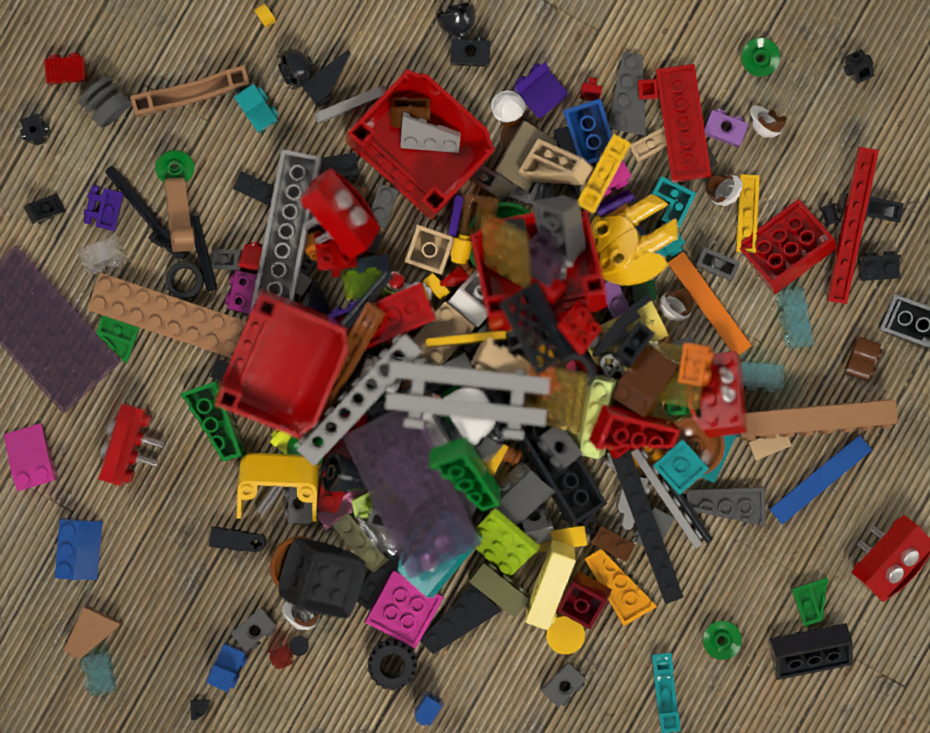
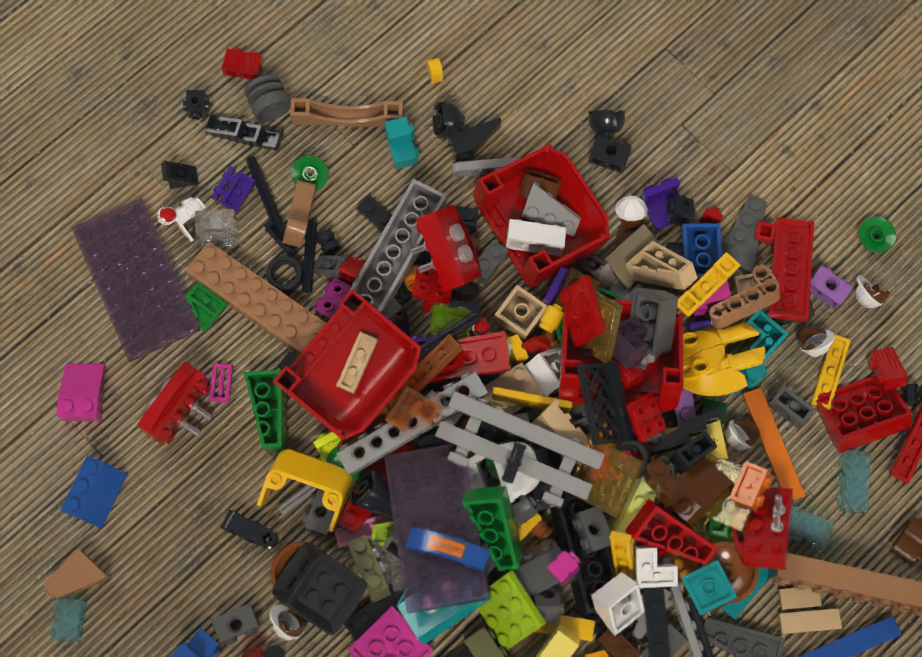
camera: 10 degrees right, 15 degrees down
(62, 252) = (181, 214): none -> white piece
(92, 143) = (243, 133): none -> black slope
(167, 403) = (219, 399): none -> dark pink tile
(212, 231) = (327, 241): none -> black wheel
(287, 354) = (357, 362): none -> tan tile
(355, 387) = (412, 405): none -> clear orange brick
(421, 168) = (535, 237): none -> white brick
(429, 510) = (447, 547): none -> blue slope
(467, 413) = (514, 463): none -> black axle
(489, 243) = (582, 311): none -> red plate
(542, 492) = (565, 566): none -> dark pink brick
(558, 95) = (680, 210): none -> black brick
(595, 465) = (623, 554): none -> yellow tile
(601, 506) = (618, 602): none -> white slope
(616, 390) = (665, 485): none -> reddish brown brick
(625, 471) = (649, 573): none -> white plate
(642, 173) = (718, 312): none -> medium nougat beam
(784, 463) = (810, 621): none -> tan tile
(801, 196) = (887, 368): none -> red brick

